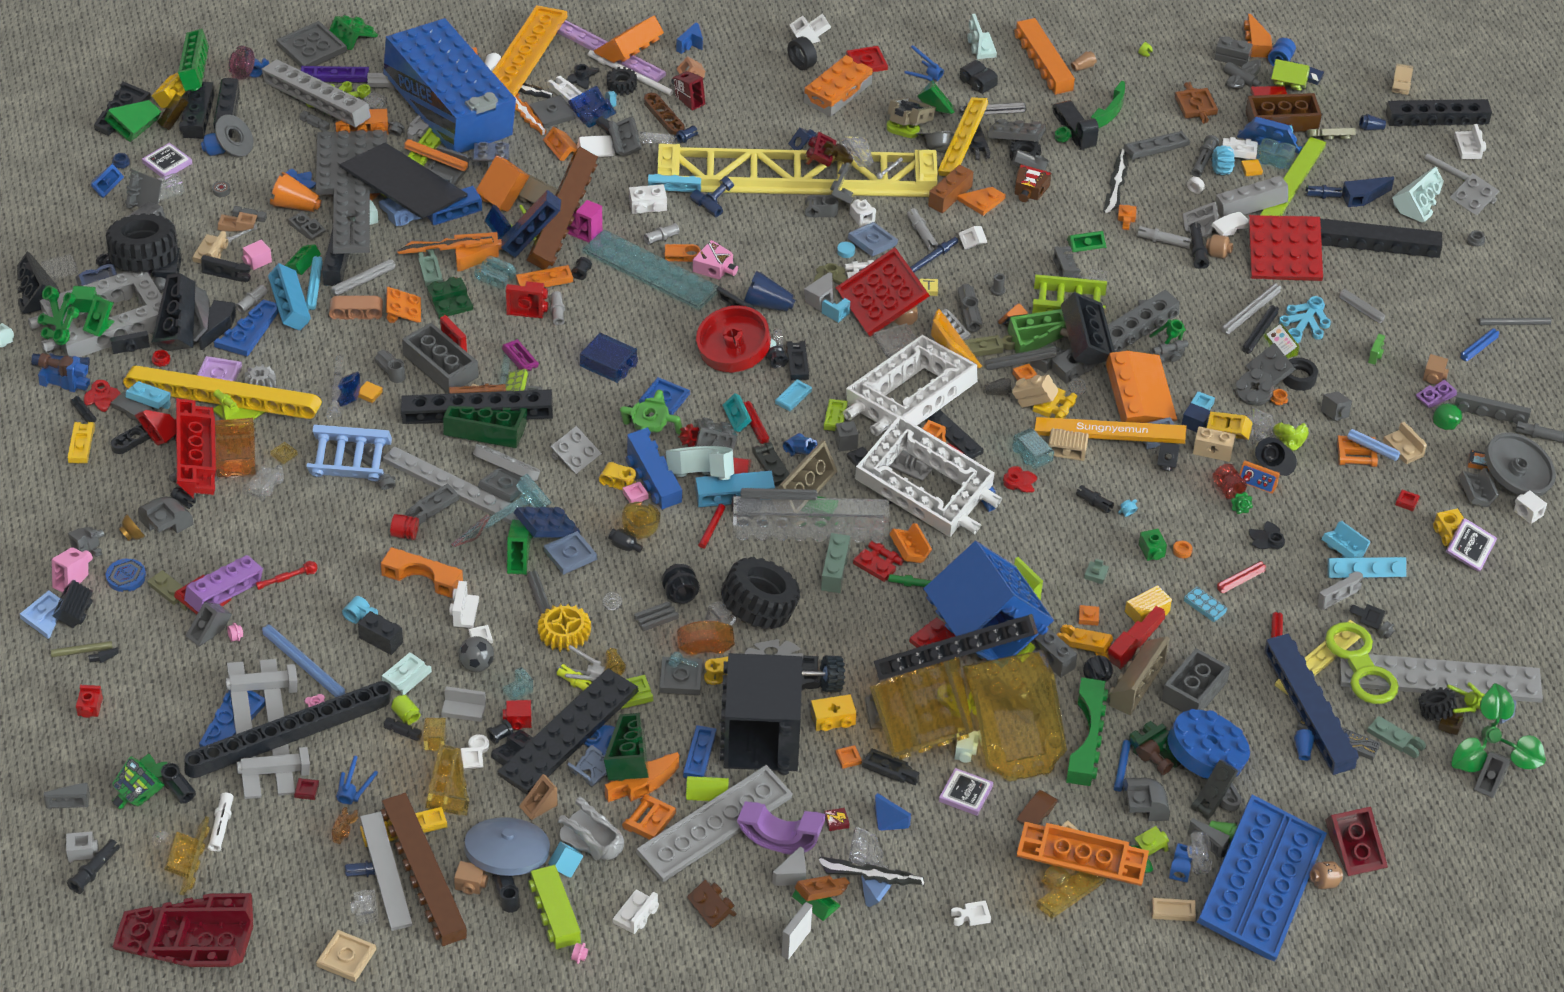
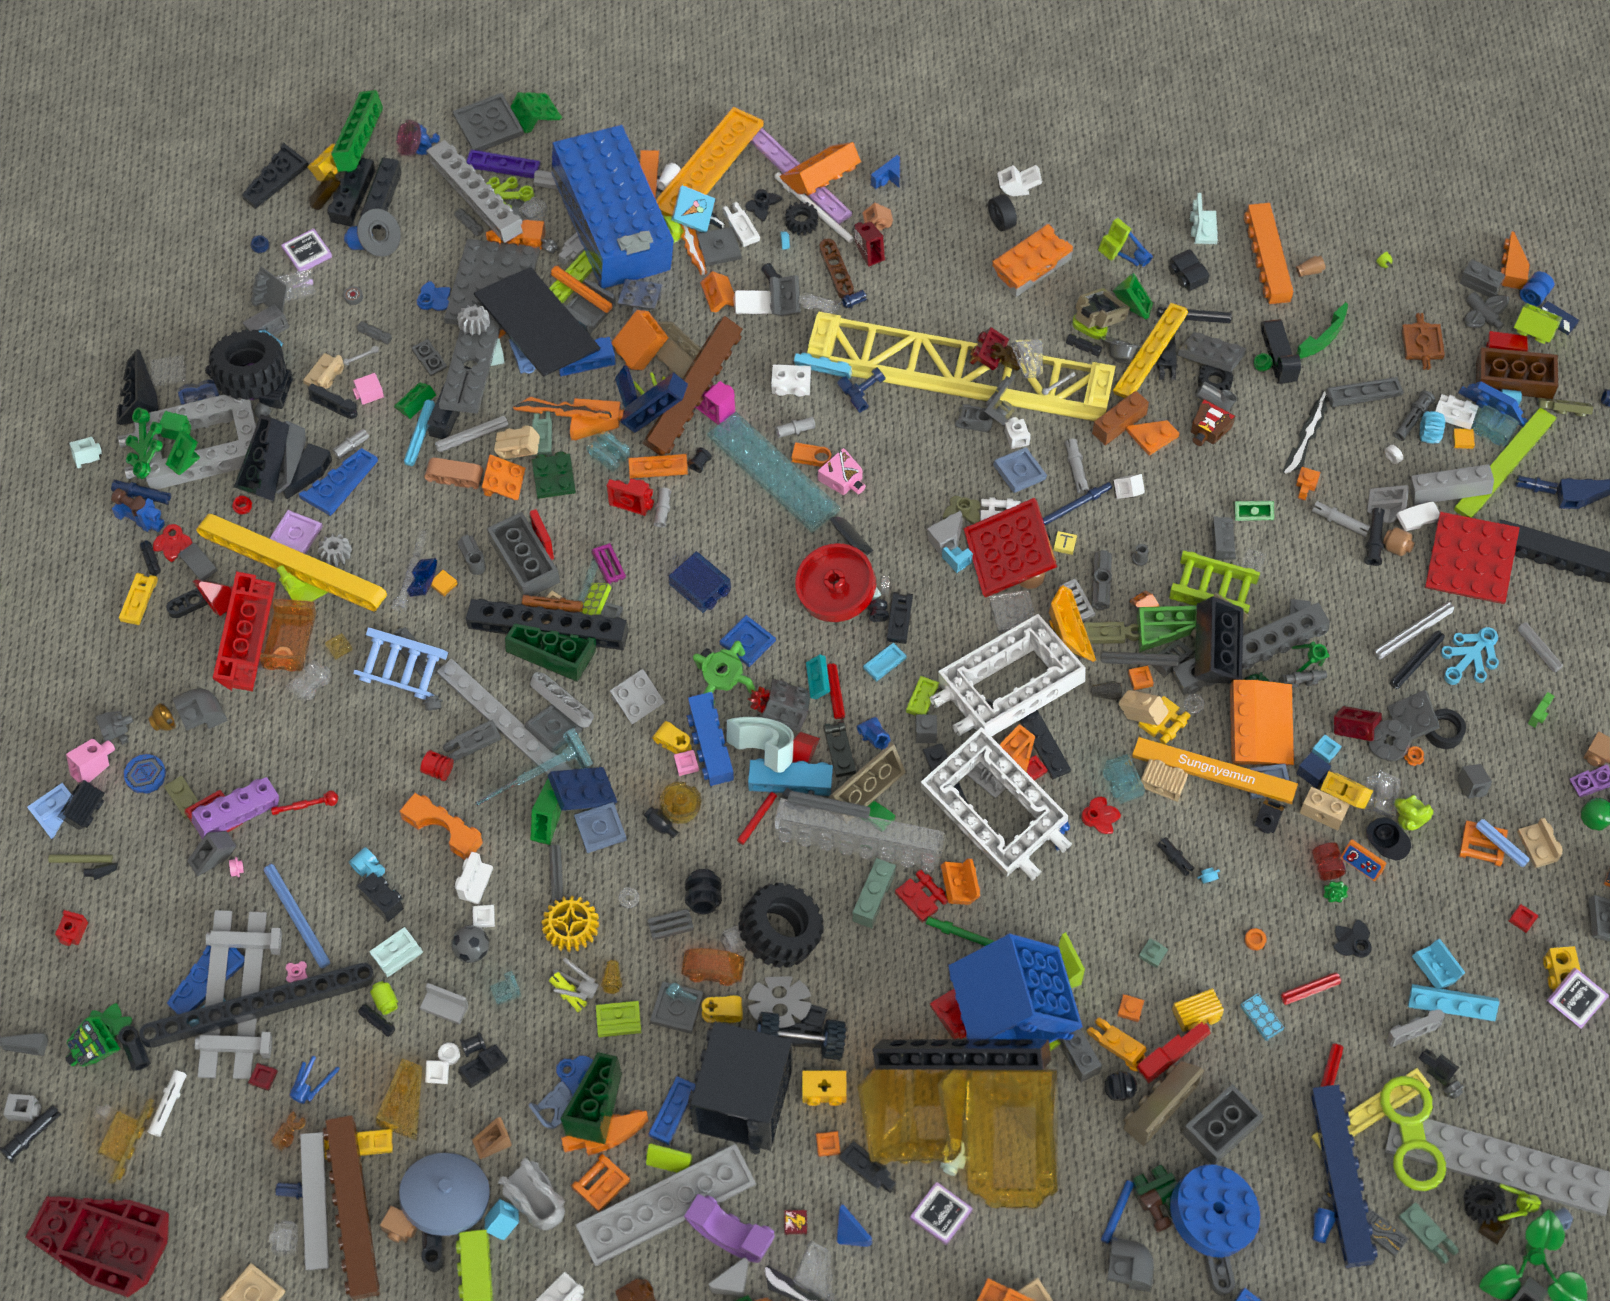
camera: 15 degrees right, 15 degrees up
(106, 180) = (239, 267): blue slope -> none
(130, 342) = (214, 480): black plate -> none
(133, 118) = (282, 194): green slope -> none
(149, 395) = (216, 554): medium azure bracket -> none
(182, 497) = (223, 690): black pin -> none
(242, 222) = (358, 343): medium nougat slope -> none
(289, 297) = (387, 450): dark azure brick -> none
(294, 195) = (422, 318): orange cone -> none
(346, 182) = (473, 320): none -> light grey gear
(410, 275) = (517, 442): none -> tan brick
(434, 733) = (404, 1037): clear yellow brick -> none
(518, 714) = (496, 1027): red brick -> none
(522, 83) = (693, 209): none -> medium azure tile
(568, 730) = (542, 1058): black plate -> none
(591, 106) = (761, 248): clear blue slope -> none
(768, 294) = (888, 528): dark blue cone -> none
(805, 135) = (980, 322): dark blue bracket -> none
(846, 249) = (988, 478): medium azure tile -> none
(869, 56) = (1074, 227): red tile -> none
(902, 142) = (1084, 344): none -> black axle
(907, 61) = (1115, 239): none -> lime slope
(1037, 808) = (1010, 1253): reddish brown slope -> none
(1081, 762) = (1072, 1204): green arch -> none
(1152, 544) = (1223, 930): green brick -> none
(1215, 789) = (1207, 1270): pearl dark grey plate -> none
(1222, 379) = (1356, 723): none -> dark red bracket
(1284, 340) = (1436, 682): slope -> none

